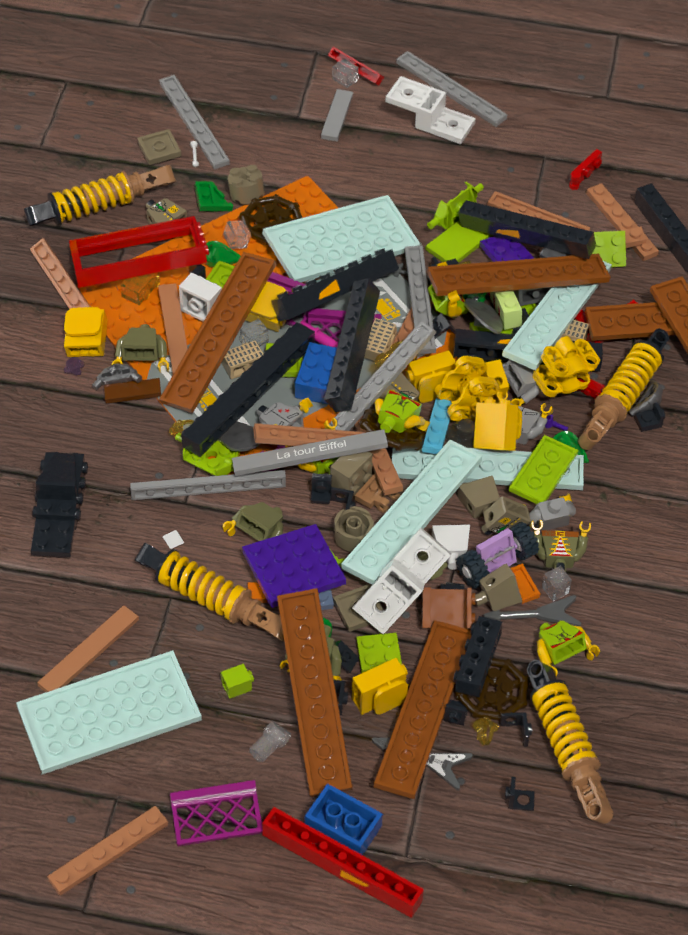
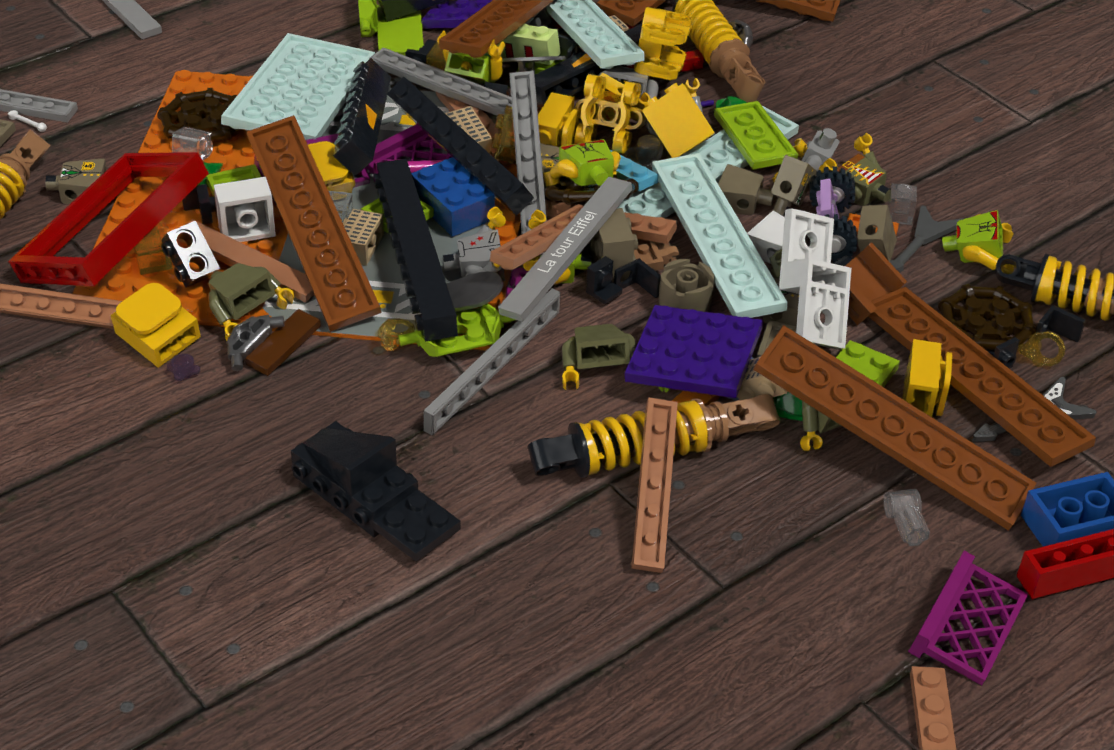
camera: 50 degrees left, 10 degrees down
(88, 650) = (616, 599): nougat tile -> none
(108, 711) = (727, 634): light aqua plate -> none
(146, 305) = (197, 252): none -> brick
(167, 613) = (654, 485): none -> nougat plate
(173, 539) = (528, 433): white sticker -> none
(210, 198) = (104, 141): green wing -> none
(237, 680) = (795, 492): lime brick -> none
(245, 184) = (132, 104): dark tan brick -> none
(478, 656) = (952, 295): black brick -> none
(650, 419) = (762, 49): black bracket -> none

